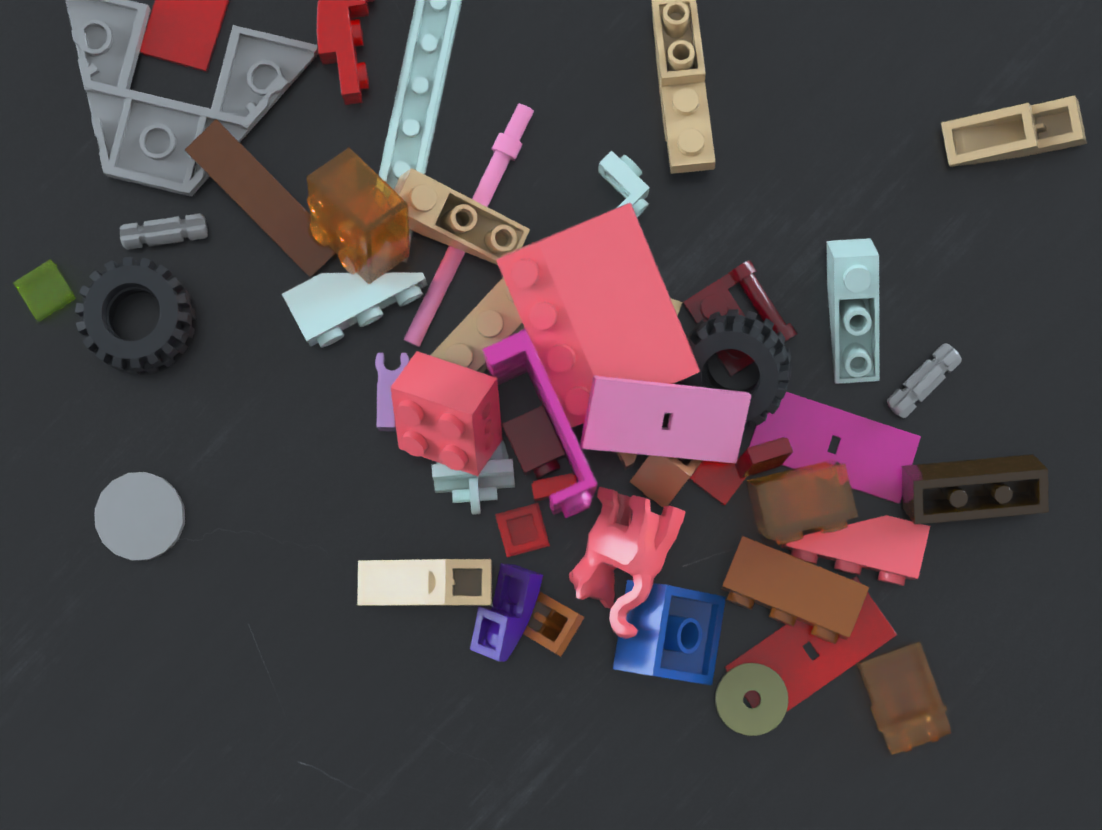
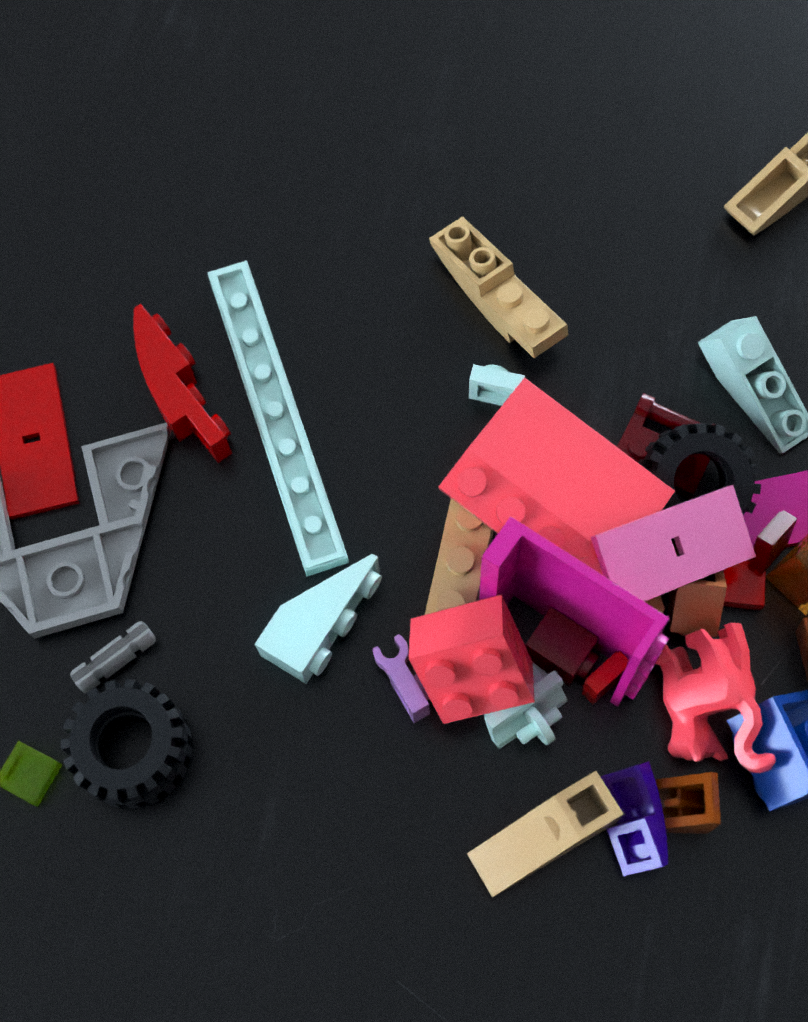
camera: 25 degrees left, 15 degrees down
(139, 516) = (232, 936): light grey tile -> none
(259, 196) = (188, 574): reddish brown tile -> none
(358, 216) = (287, 531): clear orange brick -> none
(457, 219) = (370, 494): tan slope -> none
(505, 149) = (380, 421): bright pink bar -> none
(522, 530) = (599, 735): red tile -> none

